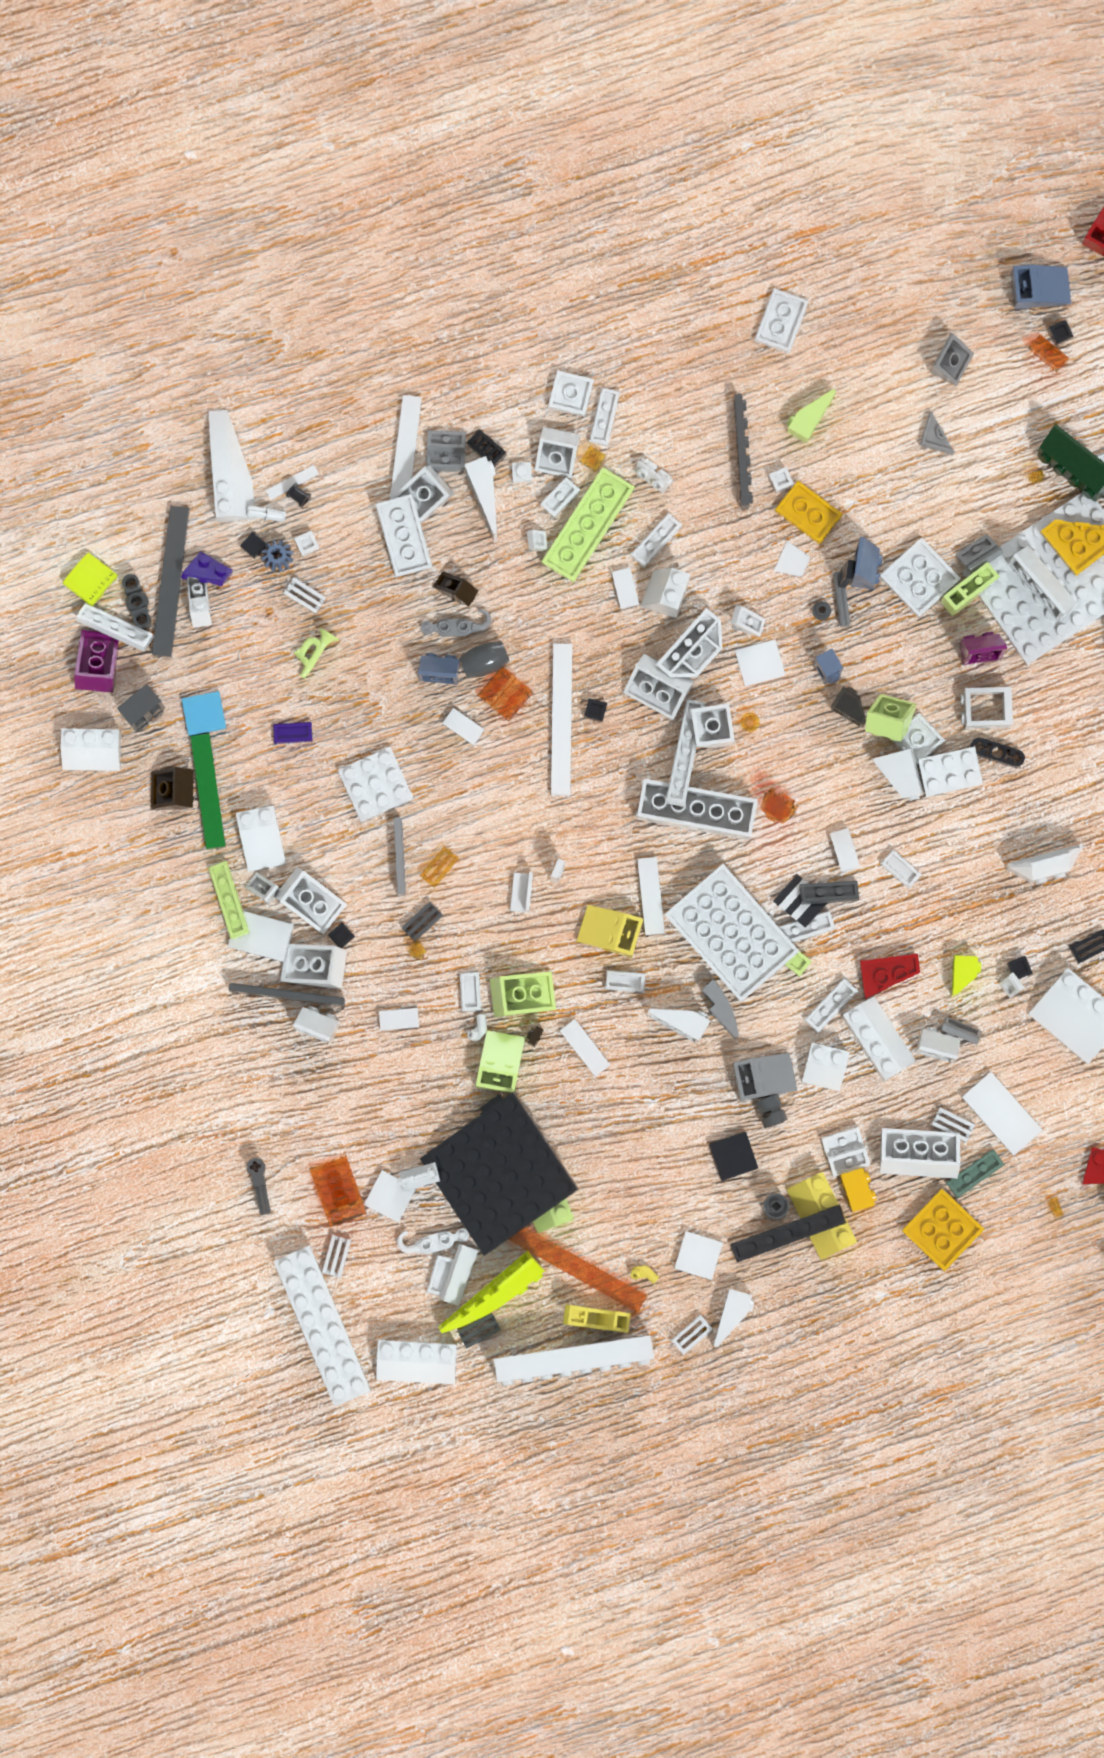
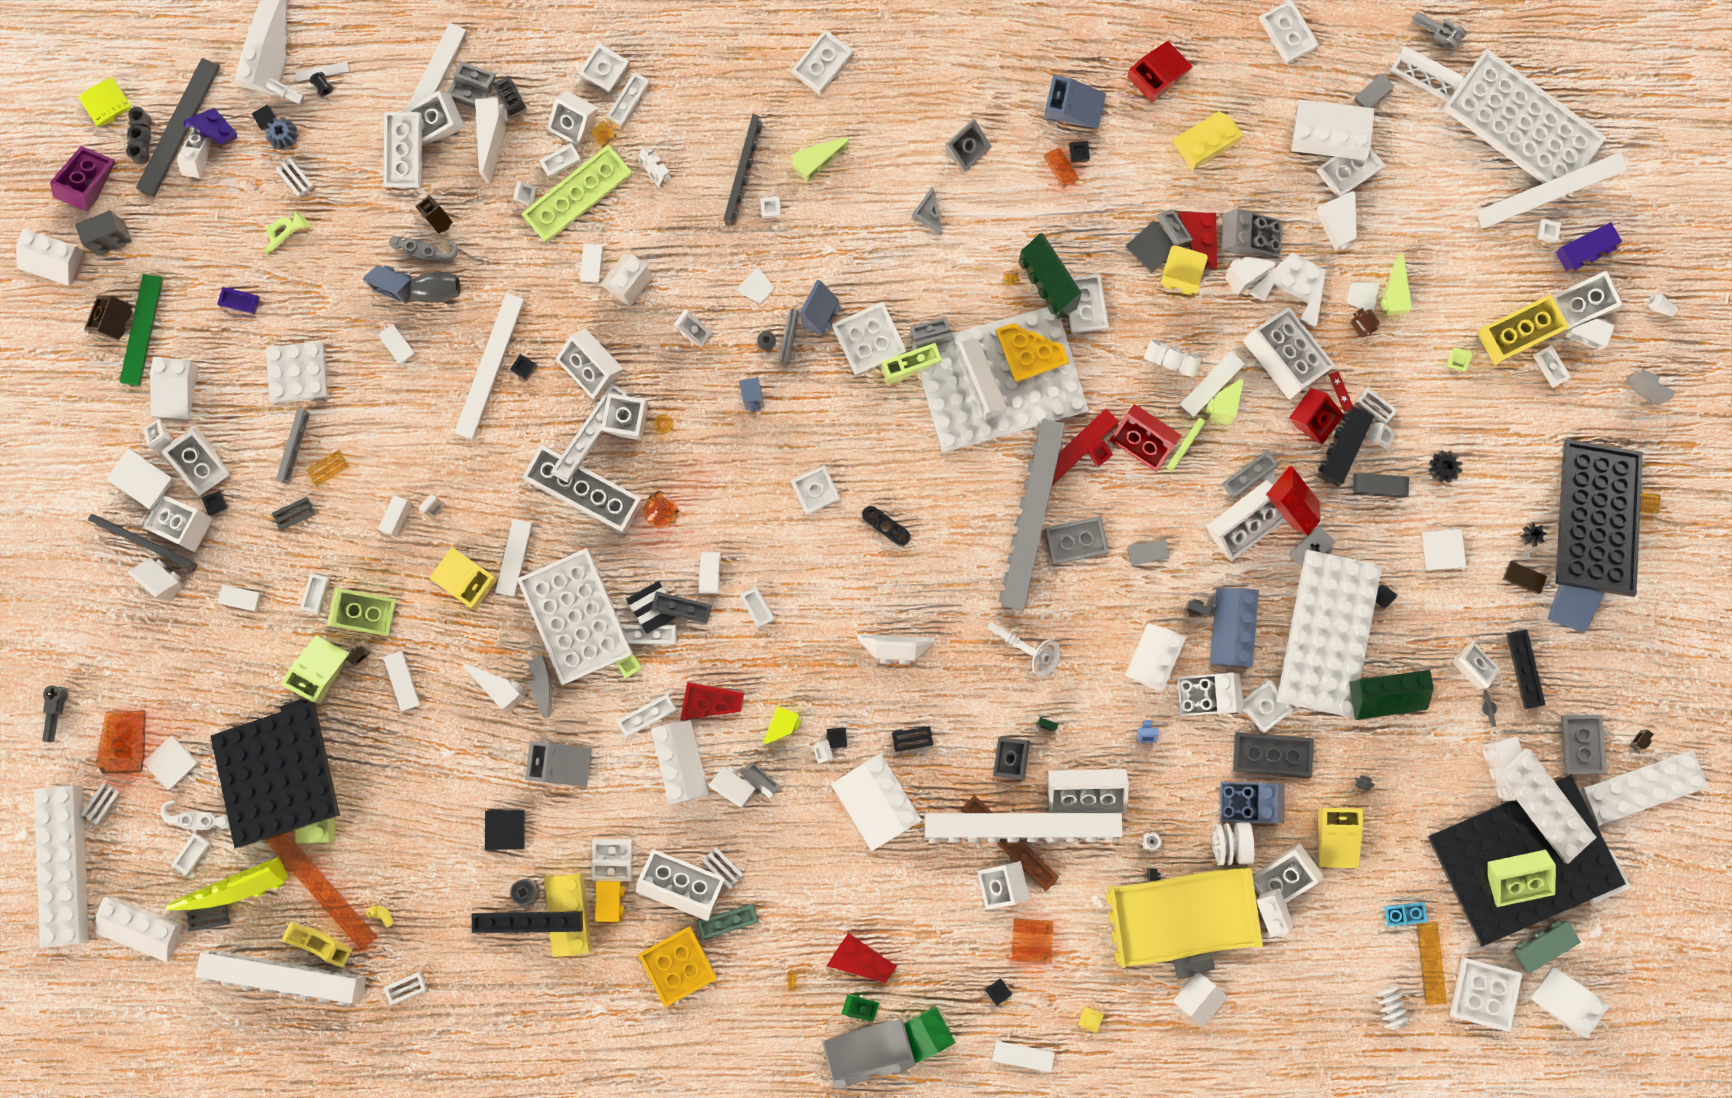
camera: 20 degrees right, 0 degrees up
(114, 627) = (109, 152): white plate -> none
(204, 713) = (163, 257): medium azure tile -> none
(229, 900) = (122, 436): yellowish green tile -> none
(306, 543) = (313, 130): white plate -> none
(416, 950) = (277, 539): clear yellow plate -> none
(418, 1176) = (199, 753): white hinge -> none
(458, 1274) = (206, 858): white tile -> none
(481, 1028) = (309, 633): white arm -> none
(505, 694) = (446, 326): clear orange slope -> none
(522, 472) = (534, 127): white plate -> none
(625, 981) = (461, 630): white tile -> none
(656, 540) = (636, 227): white tile -> none
(694, 648) = (631, 337): white wedge -> none
(698, 1255) = (438, 914): white tile -> none
(734, 1310) = (453, 977): white slope -> none
(760, 662) = (693, 371): white sticker -> none
(771, 1111) = (553, 798): dark grey wheel -> none
(808, 512) = (786, 246): yellow tile -> none
(825, 1067) = (620, 772): white slope -> none
(847, 573) = (796, 314): black tile -> none
(849, 706) = (760, 437): clear smoke slope -> none
(890, 717) = (794, 460): yellowish green slope -> none
(902, 773) = (787, 516): white slope -> none
(950, 771) = (834, 529): white plate -> none
(965, 700) = (871, 467): white window -> none
(982, 649) = (902, 423): magenta slope -> none
(1002, 1113) = (773, 872): white tile -> none

